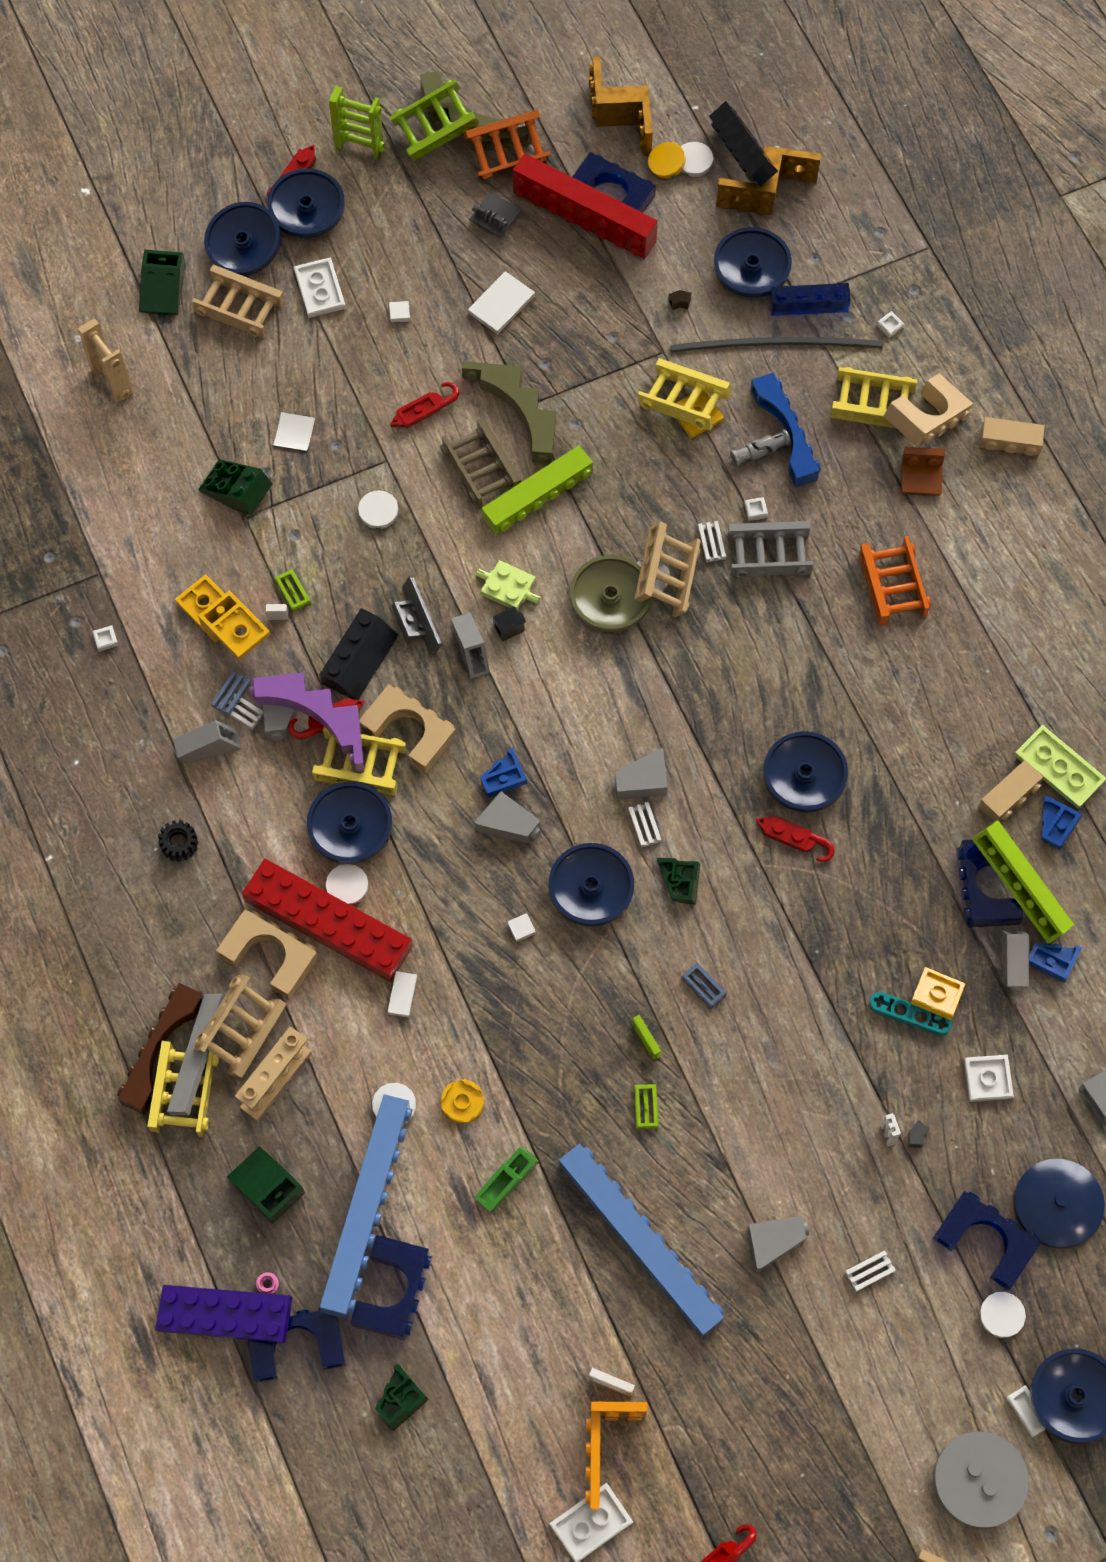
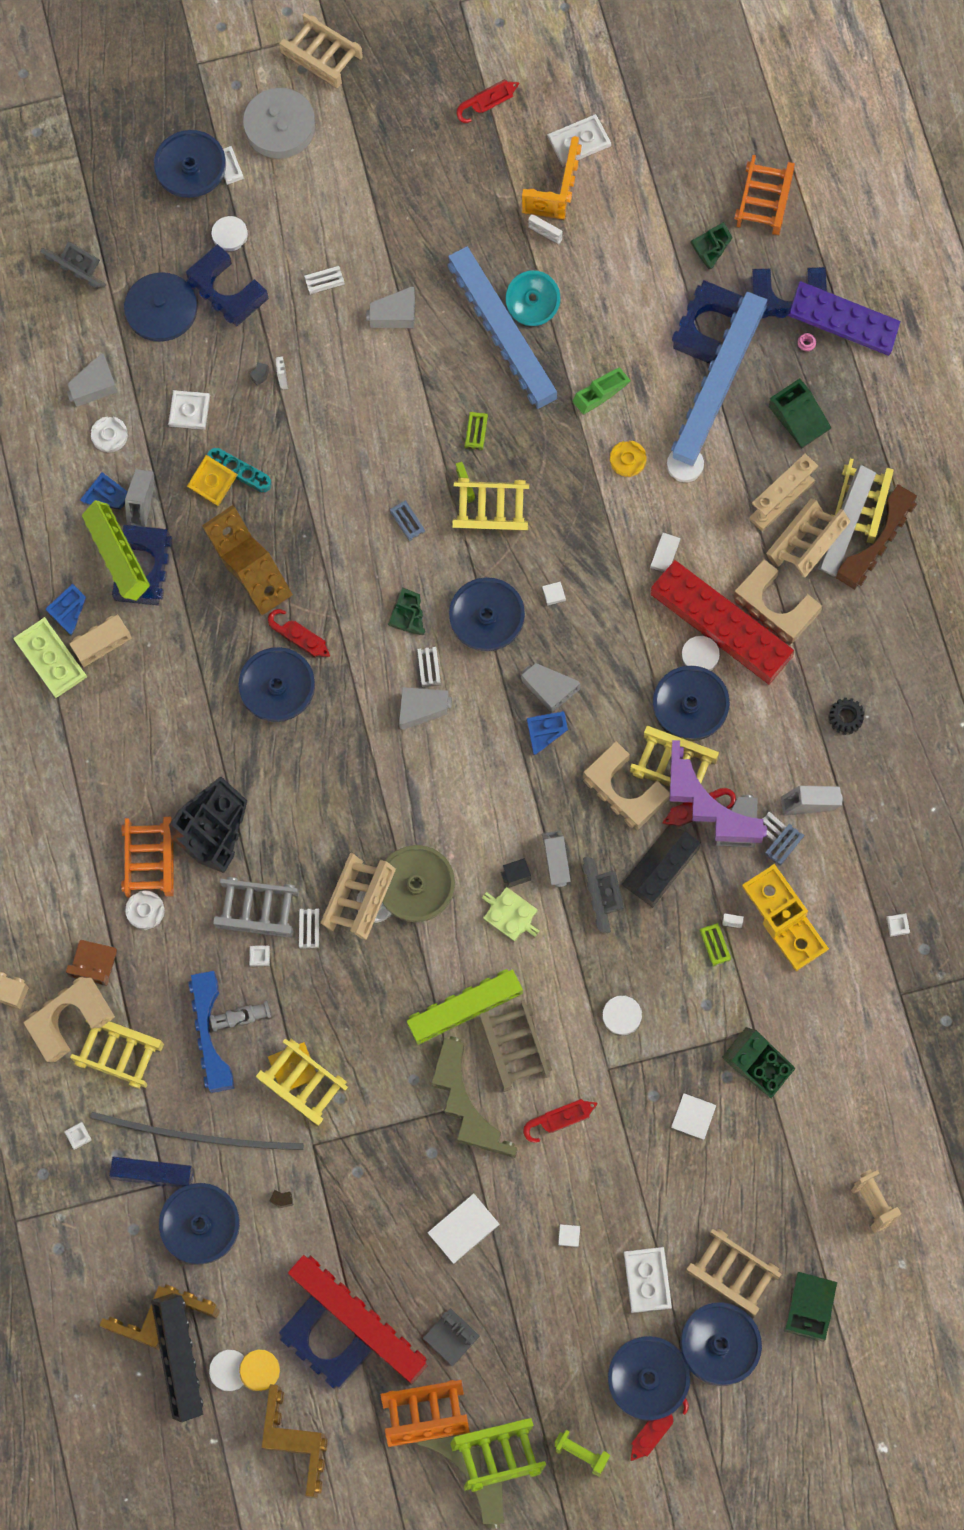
camera: 165 degrees left, 5 degrees up
(322, 1464) = (778, 205): none -> orange fence
(606, 992) = (481, 520): none -> light yellow fence
(609, 1278) = (536, 311): none -> teal dish
(836, 616) = (210, 825): none -> black wedge
(872, 896) = (247, 560): none -> pearl gold bracket
(884, 533) = (145, 910): none -> white tile
(1072, 1033) = (109, 434): none -> white tile

